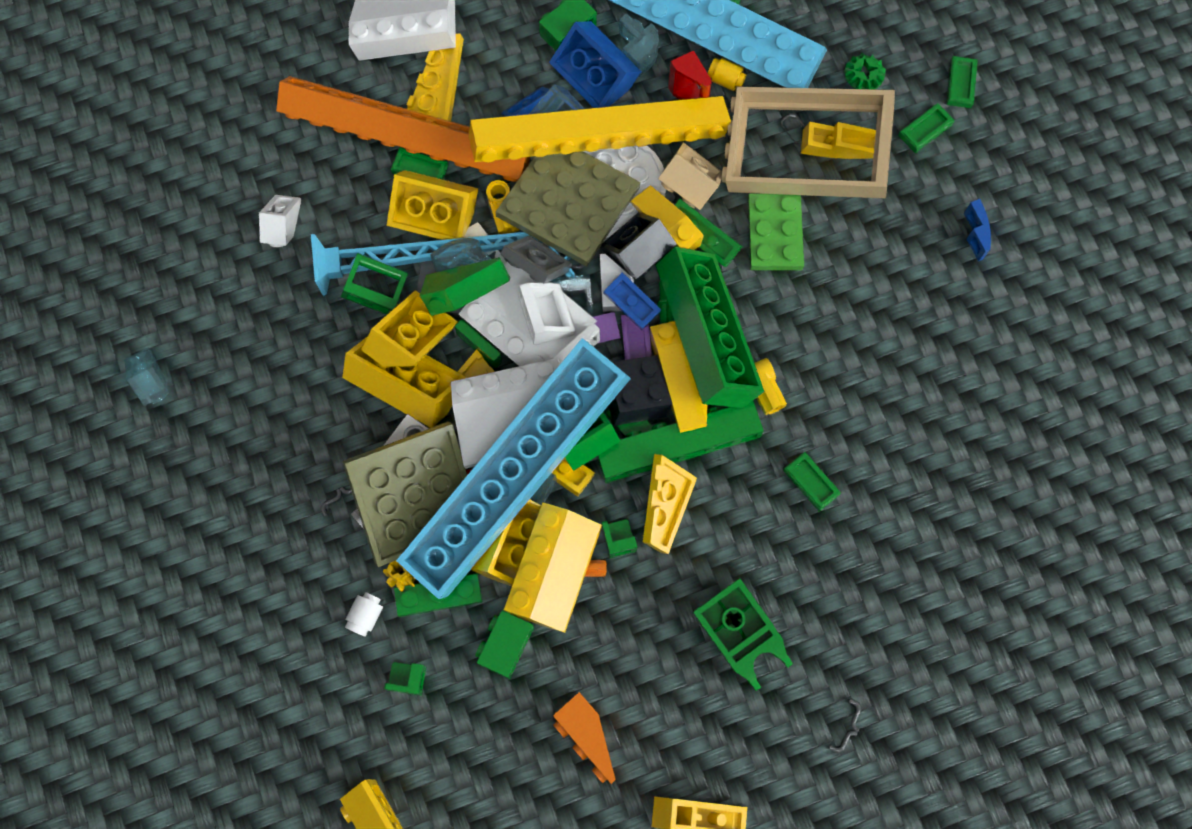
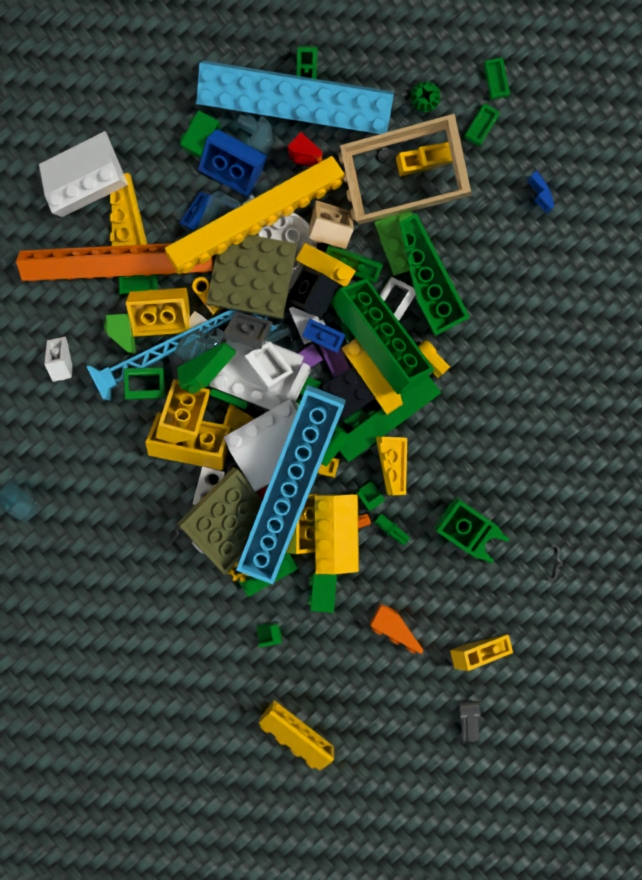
camera: 20 degrees left, 15 degrees up
(363, 614) = (226, 604): white brick -> none
(372, 211) = (120, 330): none -> bright green slope
(632, 594) = (392, 529): none -> green axle
(727, 74) = (328, 135): yellow brick -> none
(758, 301) = (407, 299): none -> white tile
(798, 285) = (430, 279): none -> green wedge
(812, 481) = (483, 412): green tile -> none

